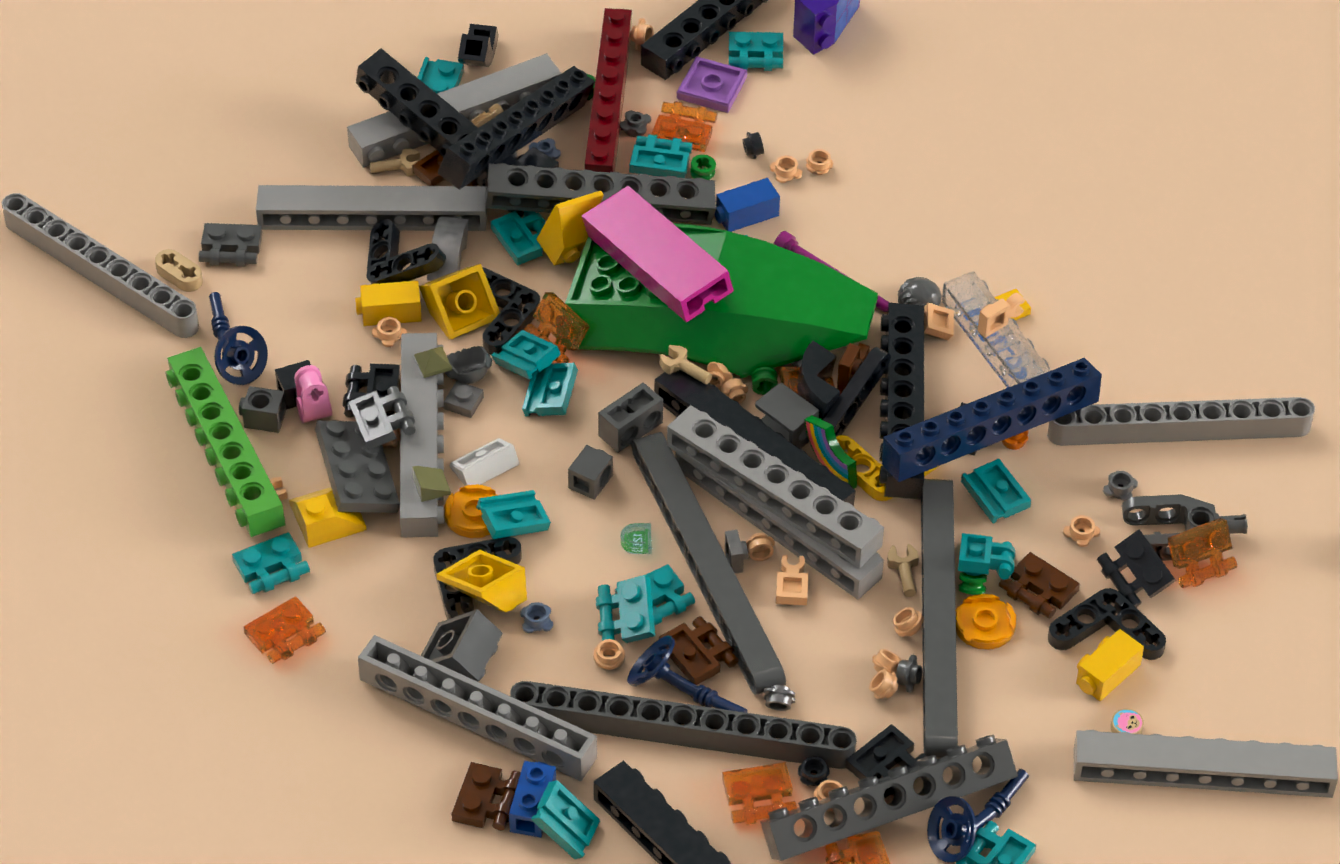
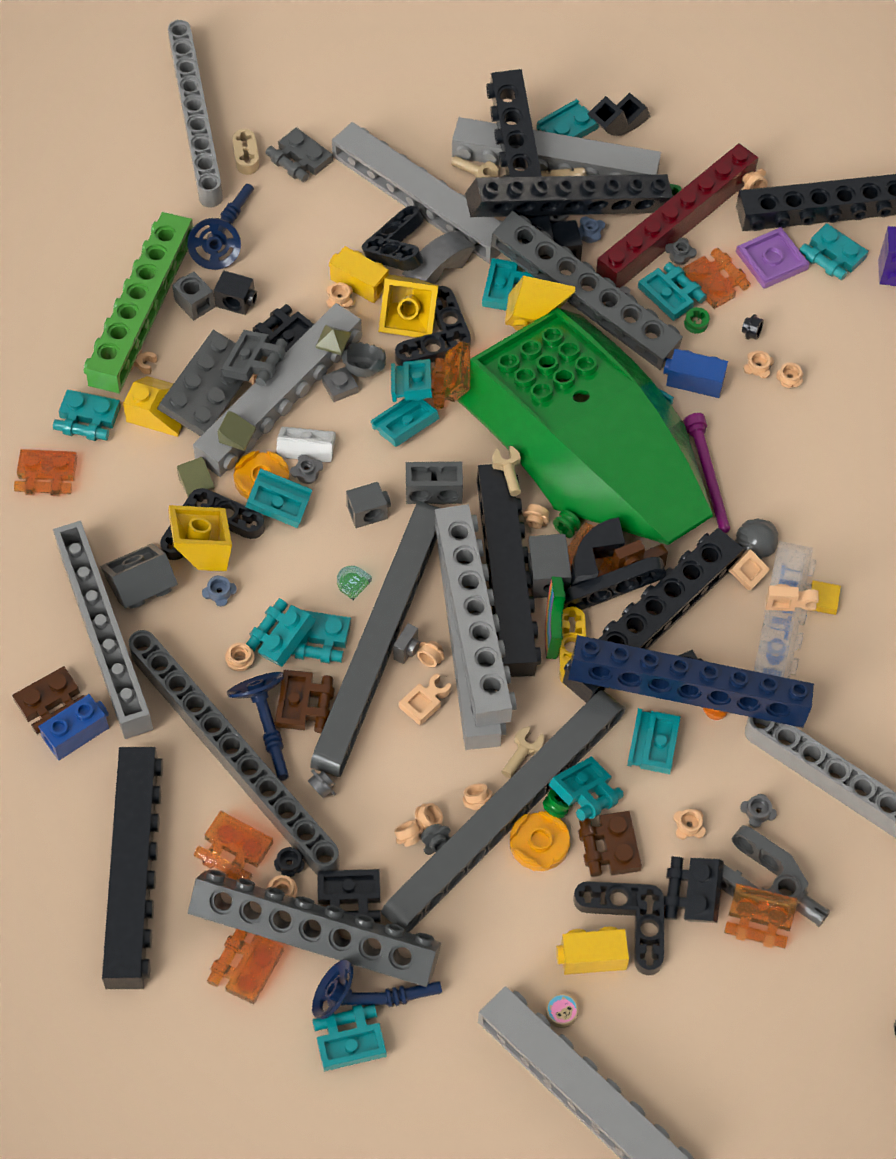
camera: 40 degrees right, 10 degrees up
(312, 394) = (229, 307): bright pink piece -> none
(420, 548) = (194, 475): none -> olive slope
(509, 480) = (306, 476): none -> flat silver plate
(565, 819) = (73, 761): teal plate -> none
(657, 253) = (560, 366): brick -> none
(720, 371) = (532, 493): light nougat plate -> none

